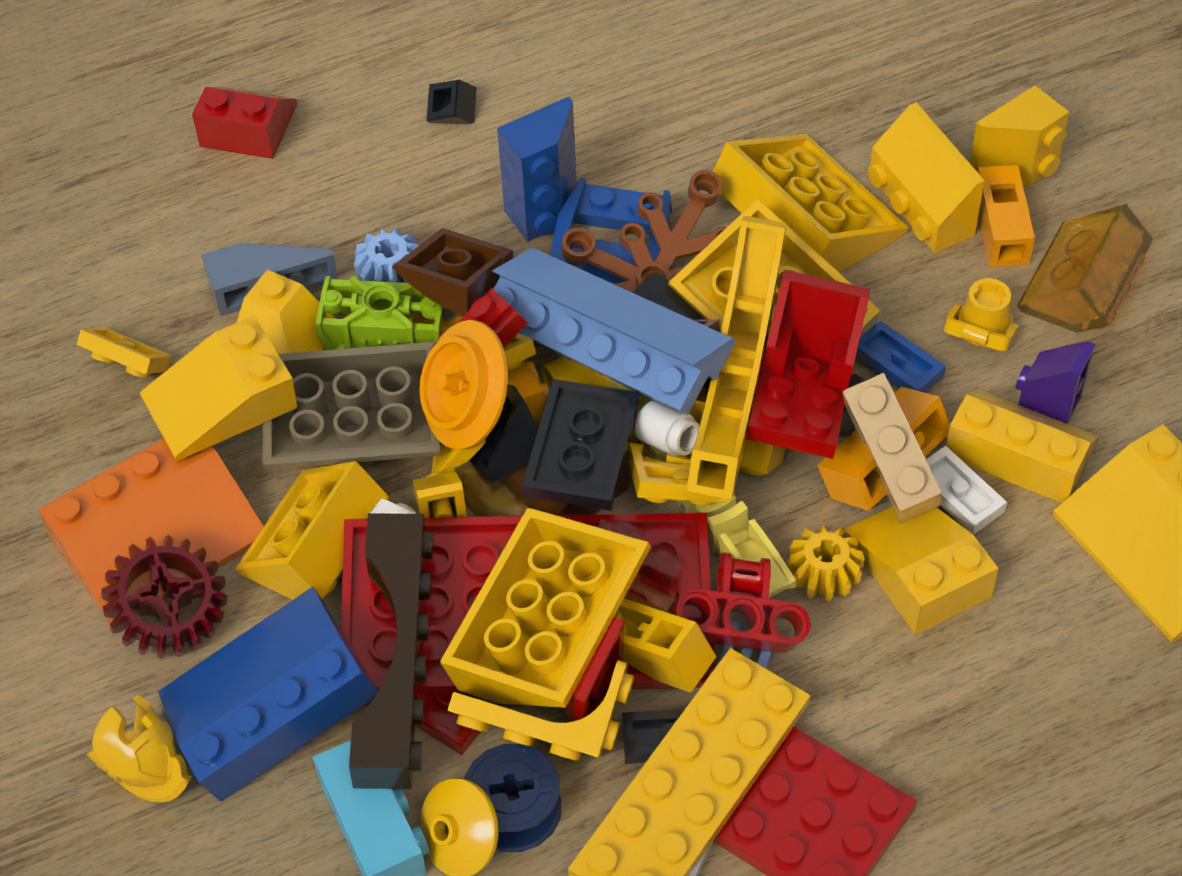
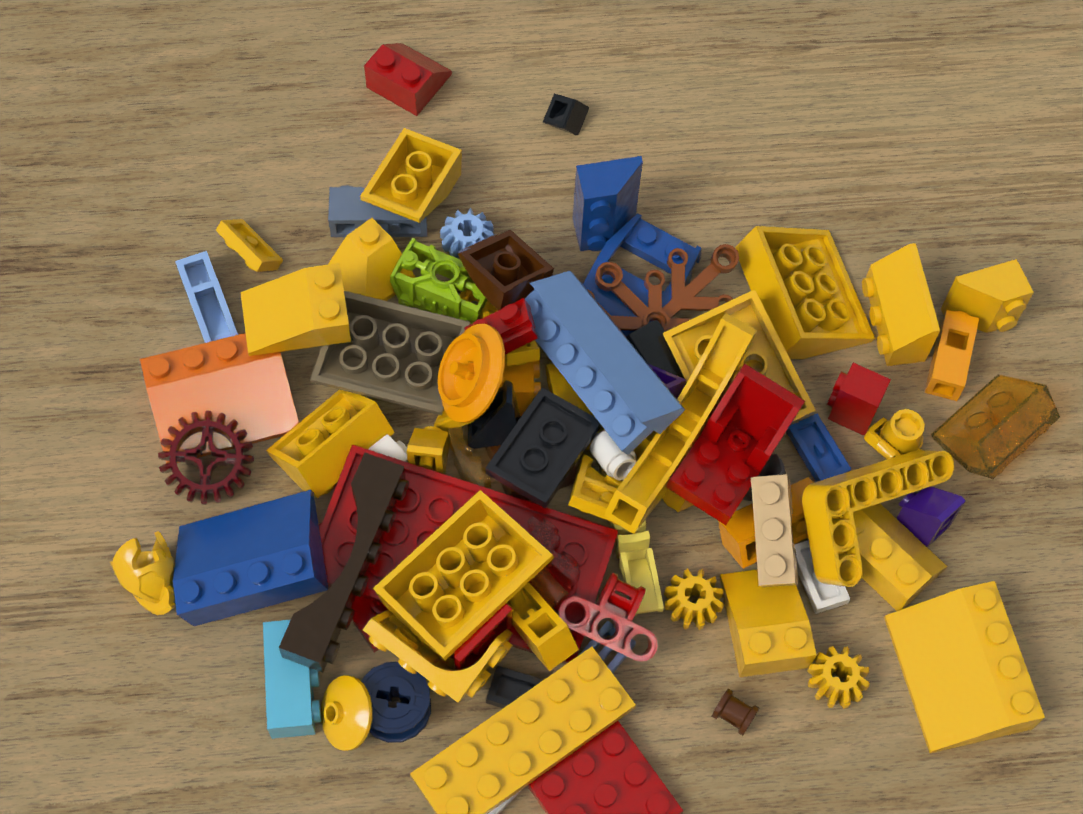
camera: 15 degrees right, 10 degrees up
(90, 420) = (206, 297): none -> light blue slope
(301, 210) = (414, 176): none -> yellow slope
(921, 287) = (857, 398): none -> red brick
(929, 669) = (735, 712): none -> reddish brown bush
(952, 412) = (831, 504): none -> yellow beam
(1031, 591) = (832, 686): none -> yellow gear

